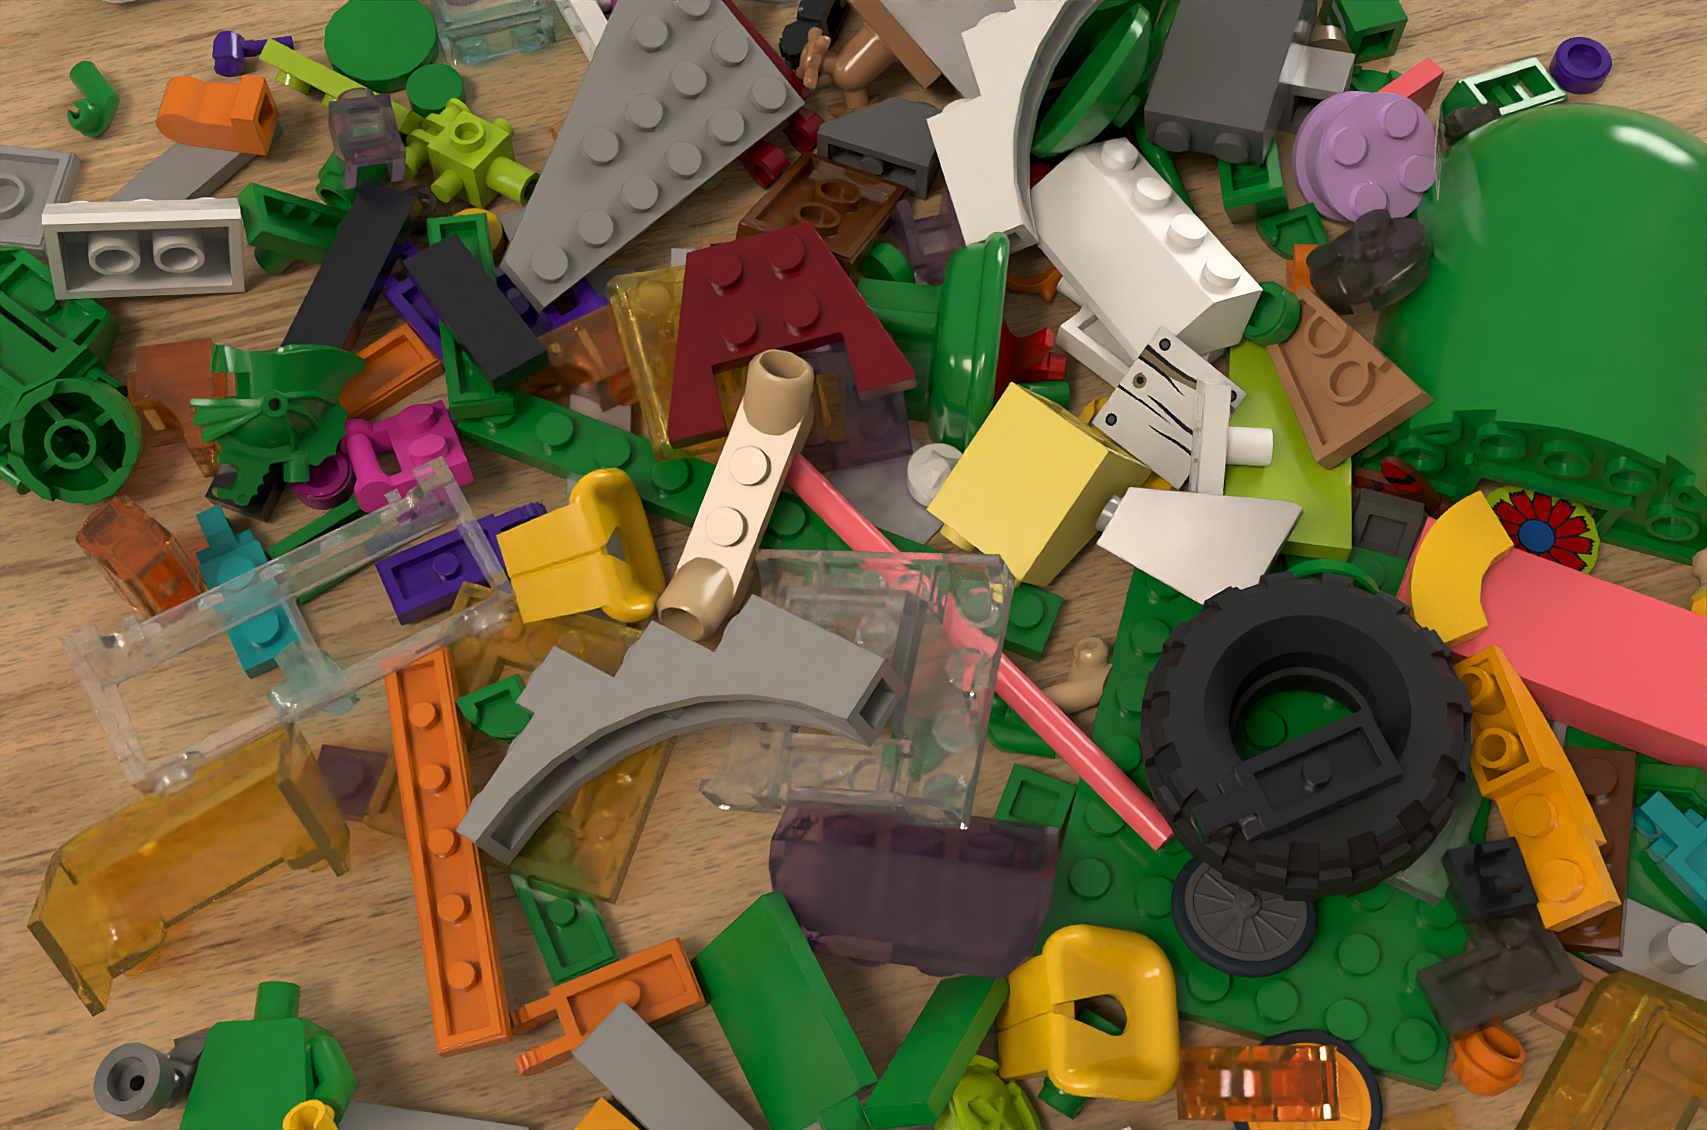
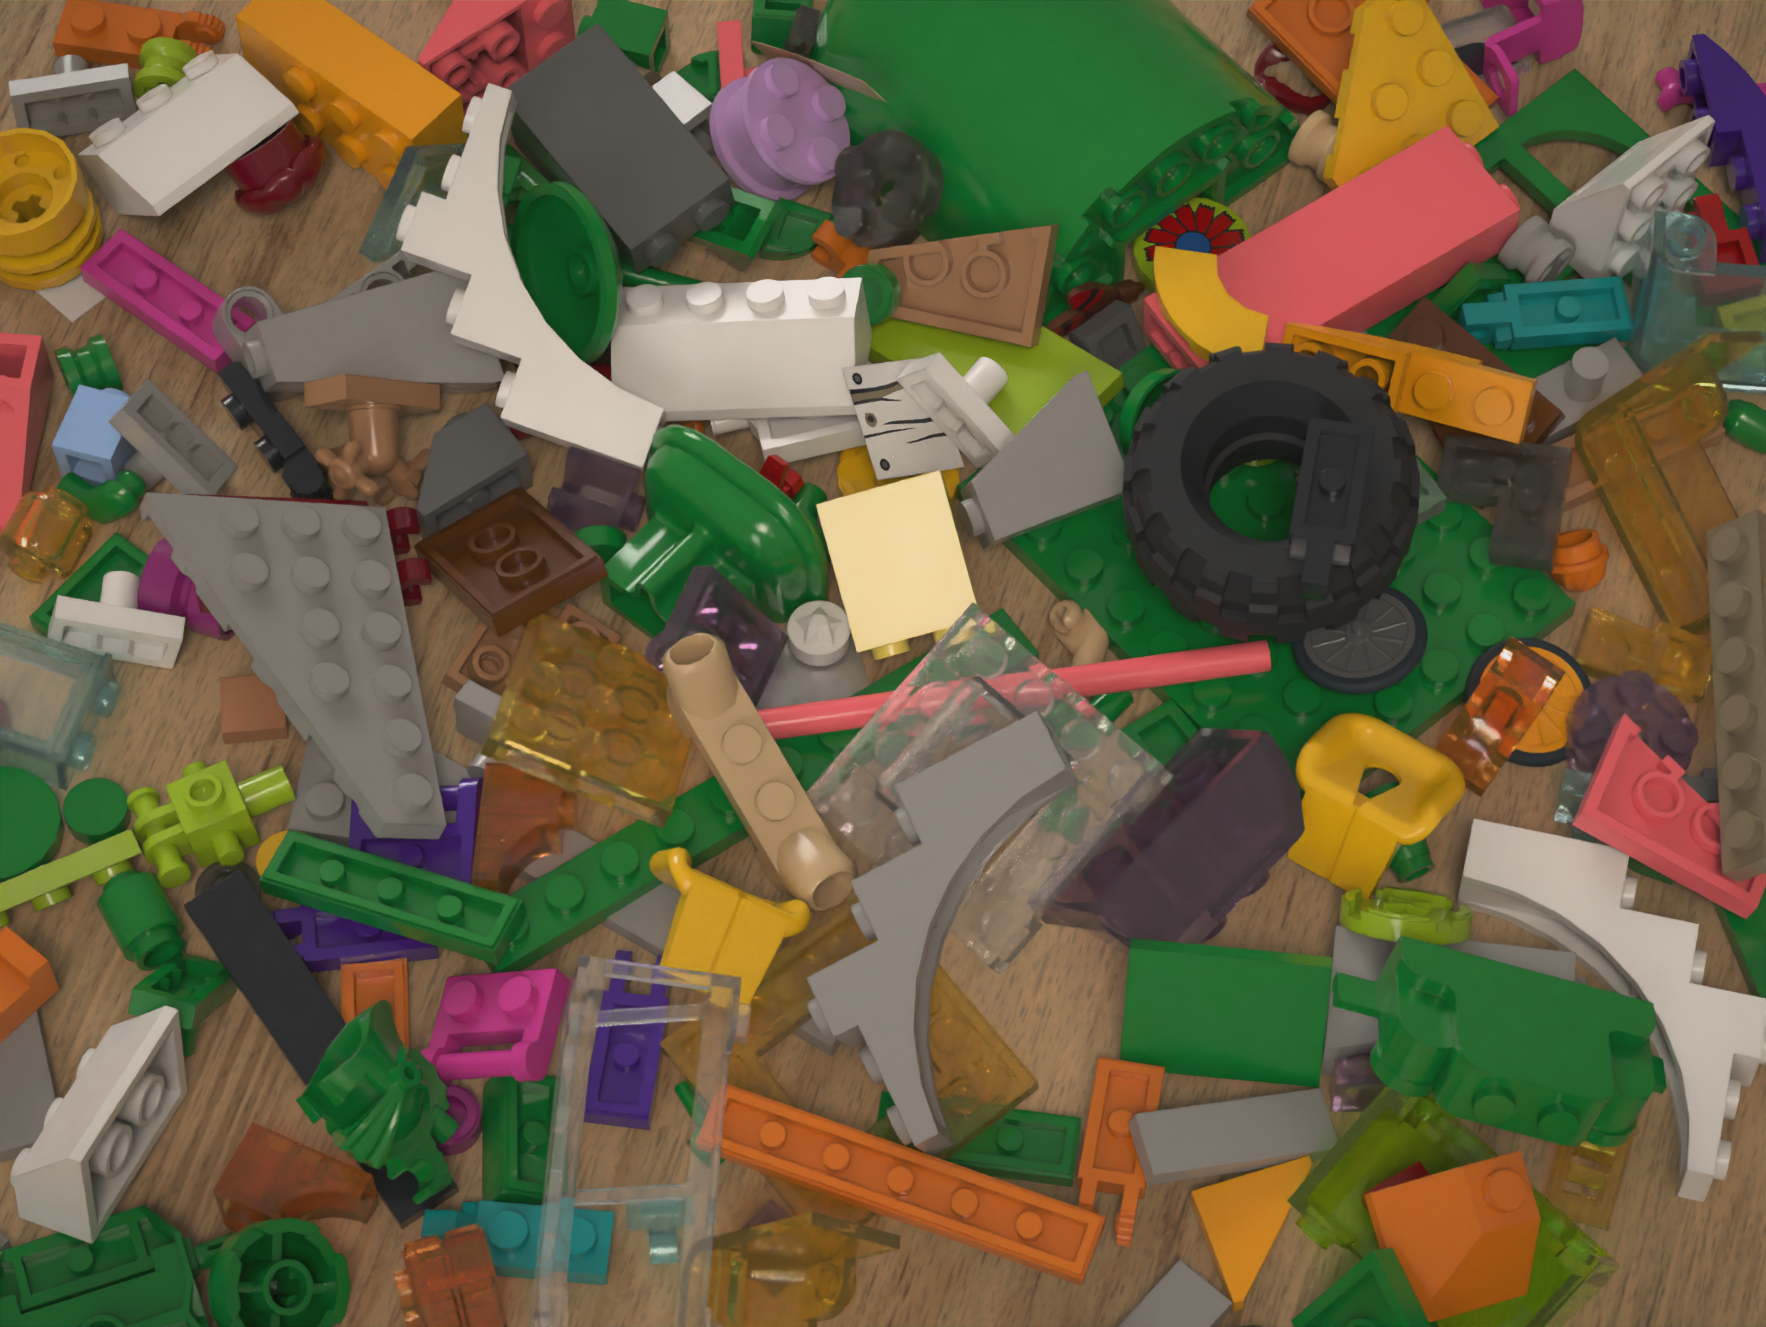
camera: 55 degrees left, 5 degrees down
(365, 134) = (147, 874): window -> none
(476, 313) = (413, 879): black tile -> none
(495, 709) = (815, 1071): green tile -> none
(764, 296) = (605, 634): dark red wing -> none
(936, 1052) = (1331, 908): green tile -> none
(1489, 880) = (1457, 455): black tile -> none

